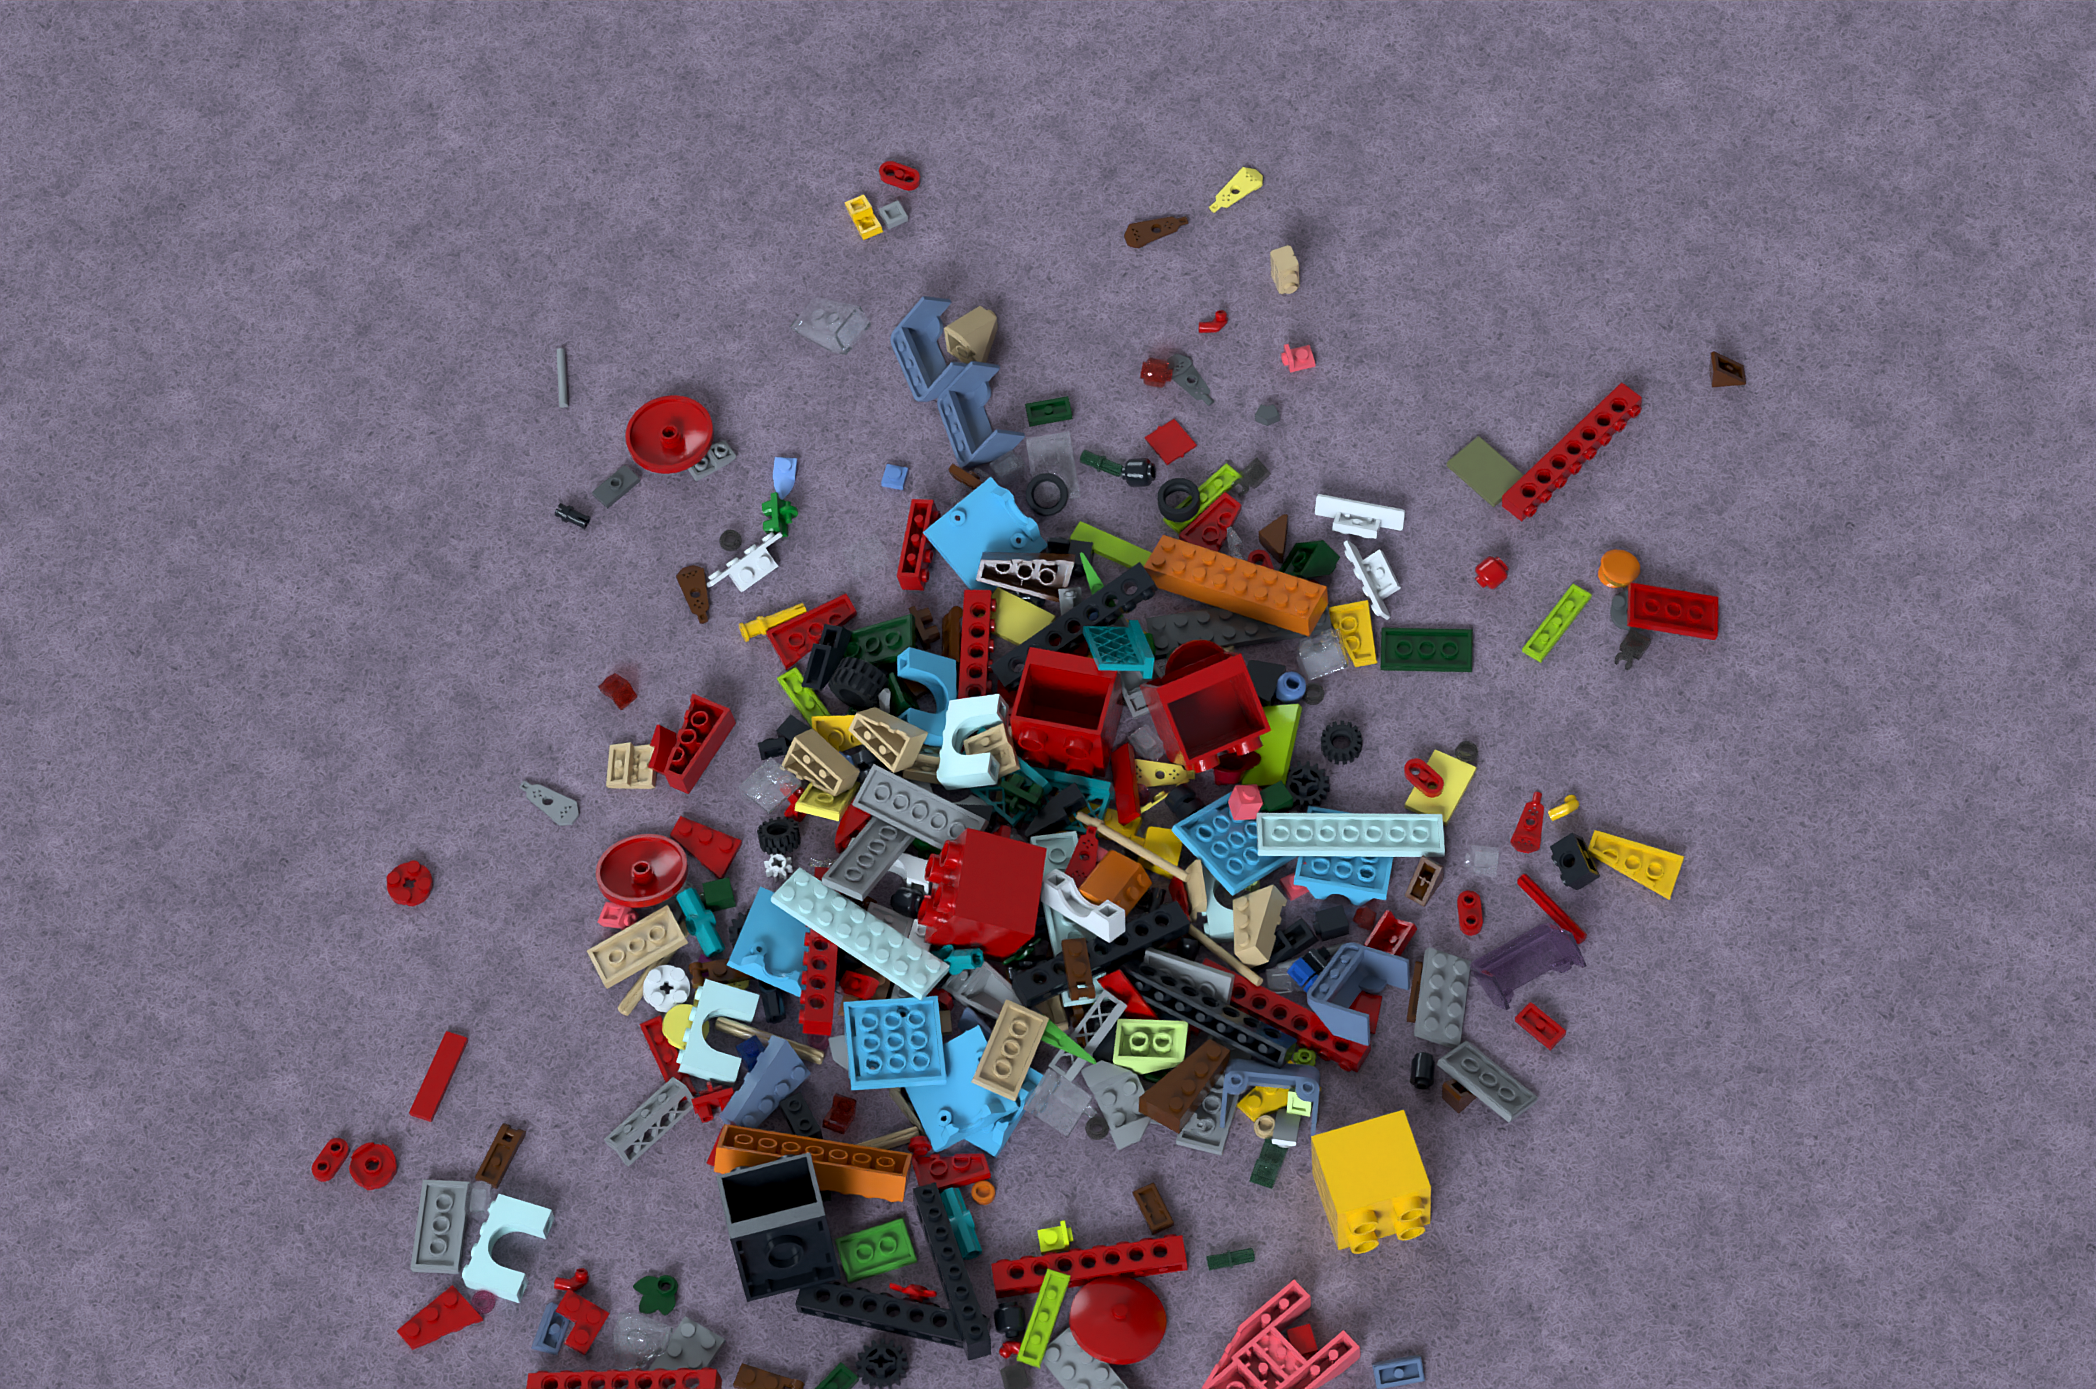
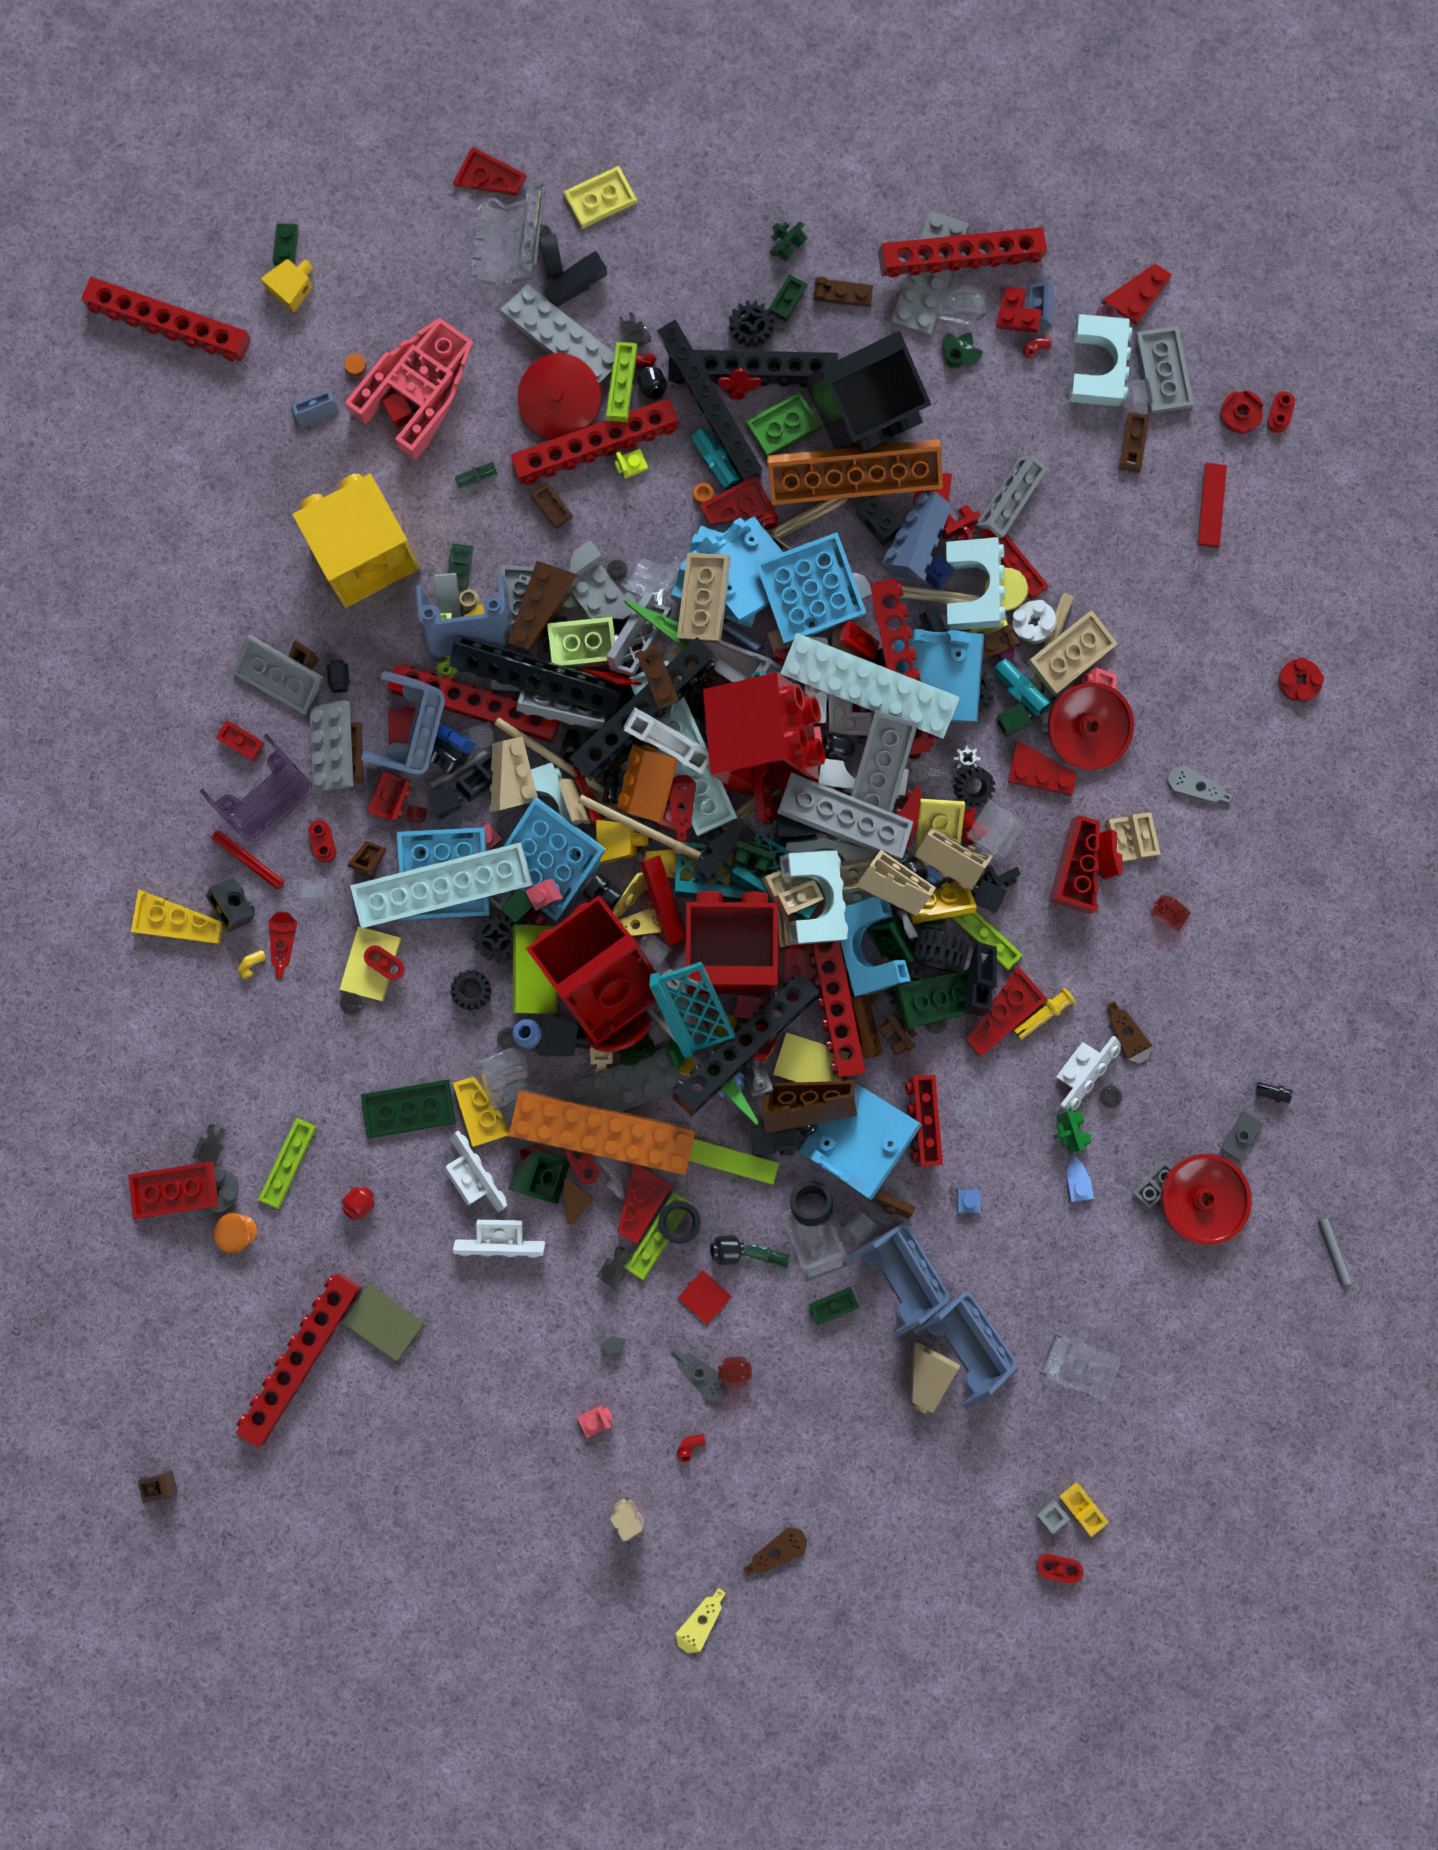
camera: 160 degrees right, 20 degrees up
(840, 1114) = (847, 532): clear red bracket -> none

